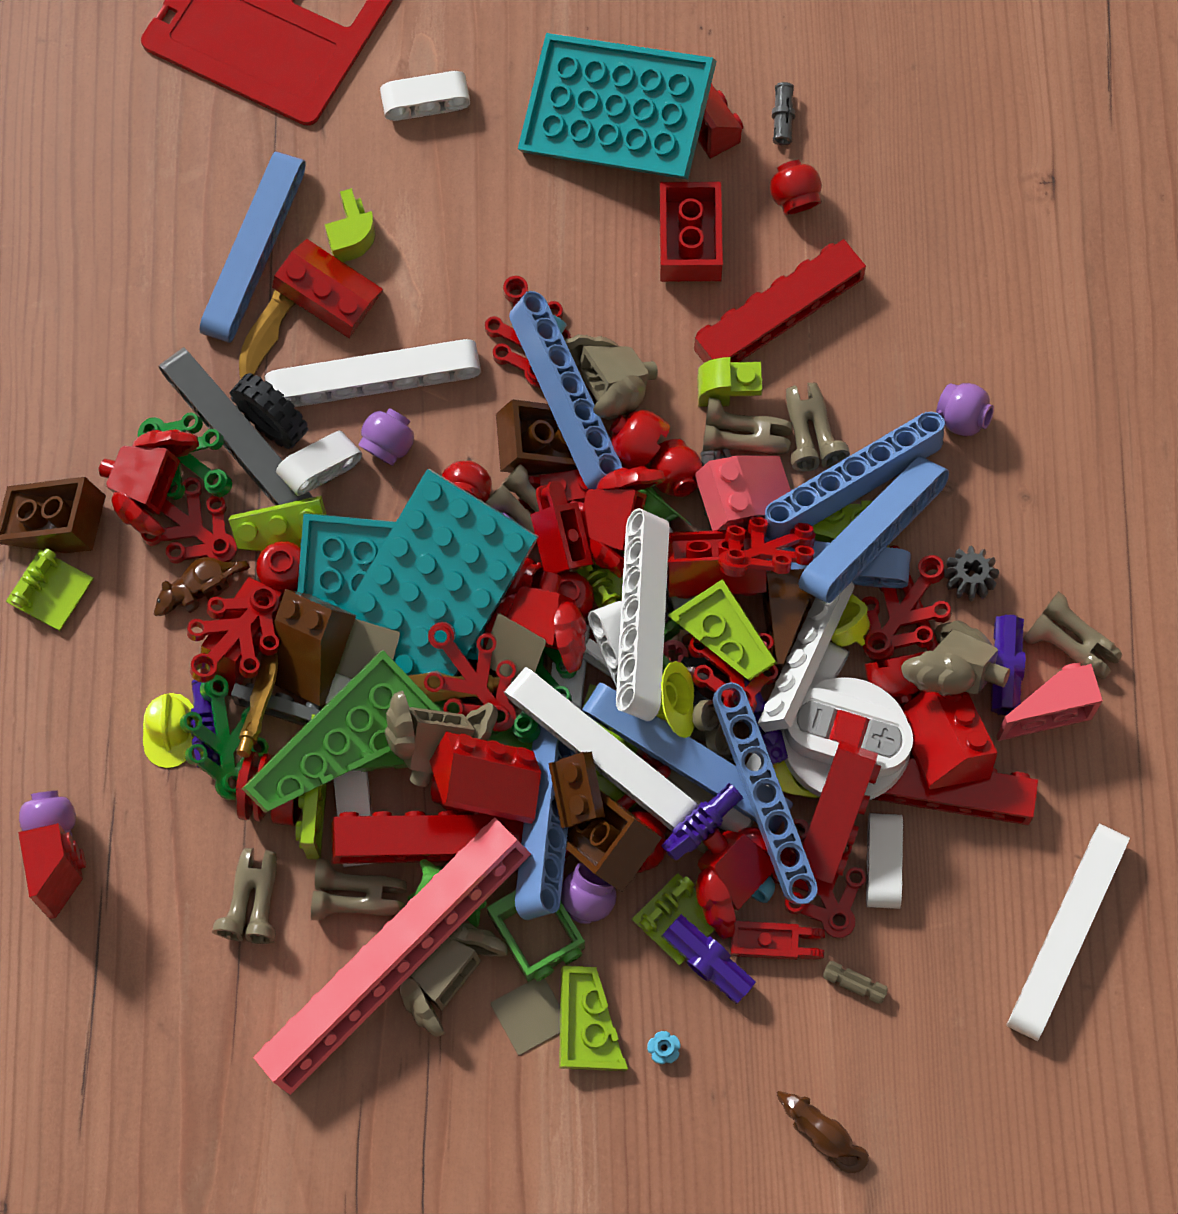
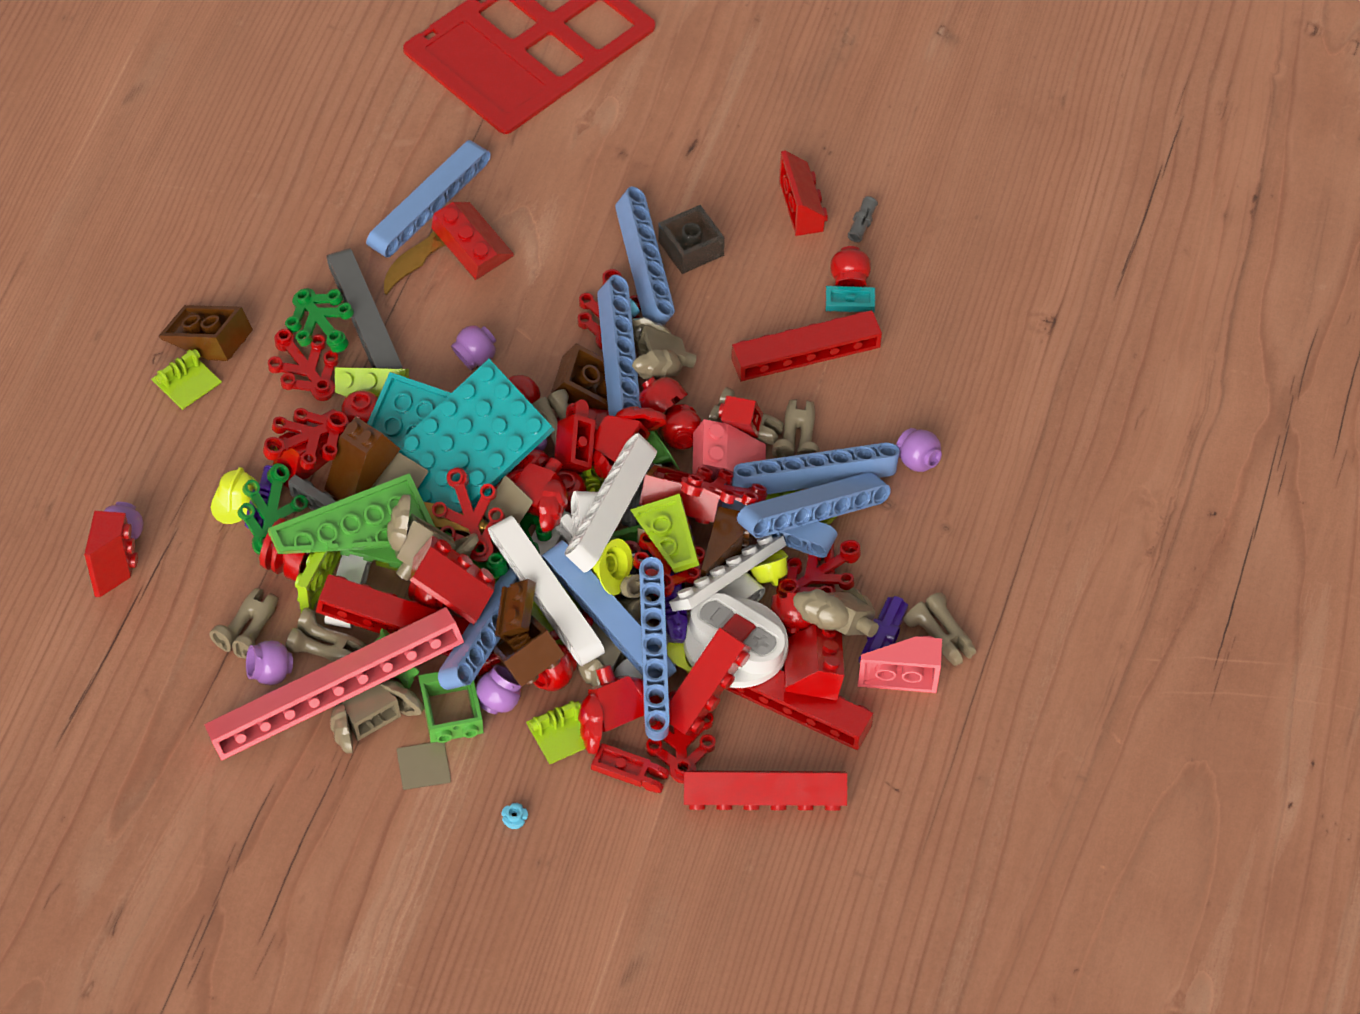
camera: 15 degrees right, 15 degrees down
(144, 476) = (285, 319): red torso -> none
(202, 578) = (300, 398): reddish brown animal -> none
(258, 703) = (288, 505): pearl gold sword -> none
(269, 411) = (393, 302): black tyre -> none
(298, 947) = (268, 662): none -> medium lavender piece
(319, 463) = (417, 349): white beam -> none
(355, 233) = (506, 210): lime brick -> none
(377, 373) = (482, 305): white beam -> none
(425, 95) = (597, 135): white beam -> none
(545, 248) = (644, 256): none -> medium blue beam
(586, 1028) = (462, 780): lime wing -> none
(592, 207) = (691, 239): none -> clear smoke brick
(617, 105) = (734, 173): teal plate -> none
(690, 231) = (758, 275): red brick -> none
(701, 822) = (600, 656): dark purple hinge -> none
(708, 959) = (572, 762): dark purple piece -> none
(724, 379) = (746, 379): lime brick -> none
(745, 438) = (742, 415): none -> red brick
(765, 891) = (633, 730): medium azure hinge -> none
(808, 227) = (850, 299): none -> teal plate
(826, 1134) = (613, 908): reddish brown animal -> none
(855, 982) = (679, 815): dark tan axle -> none
(884, 861) = (734, 737): white beam -> none
(946, 918) = (765, 788): none -> brick
(962, 565) = (880, 563): dark grey gear -> none
(1068, 932) = (856, 828): white beam -> none

